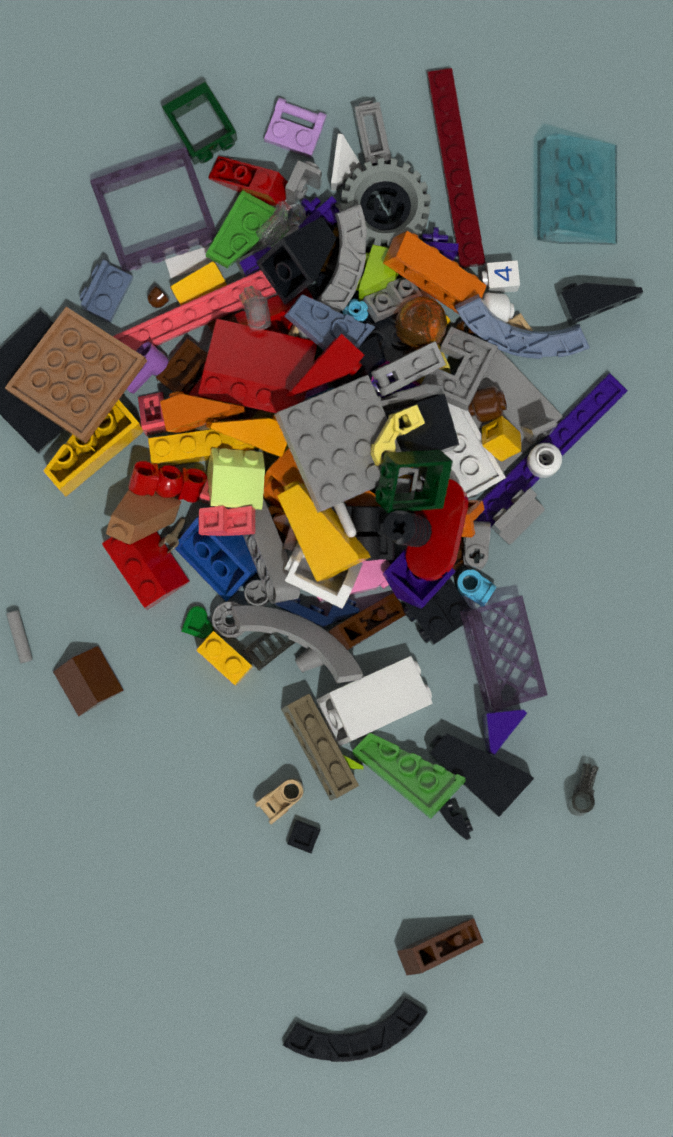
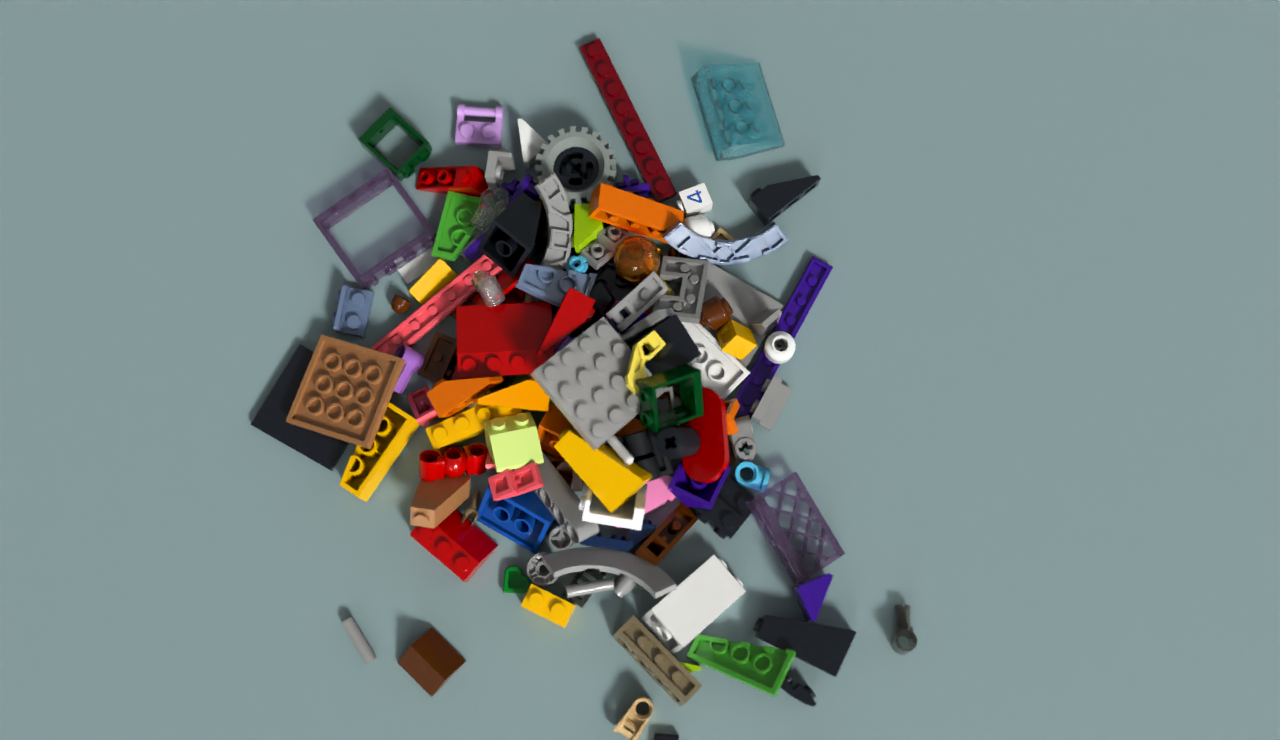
camera: 10 degrees left, 5 degrees down
(272, 652) = (589, 587): none -> light grey piece
(372, 132) = (546, 110): light grey window -> none

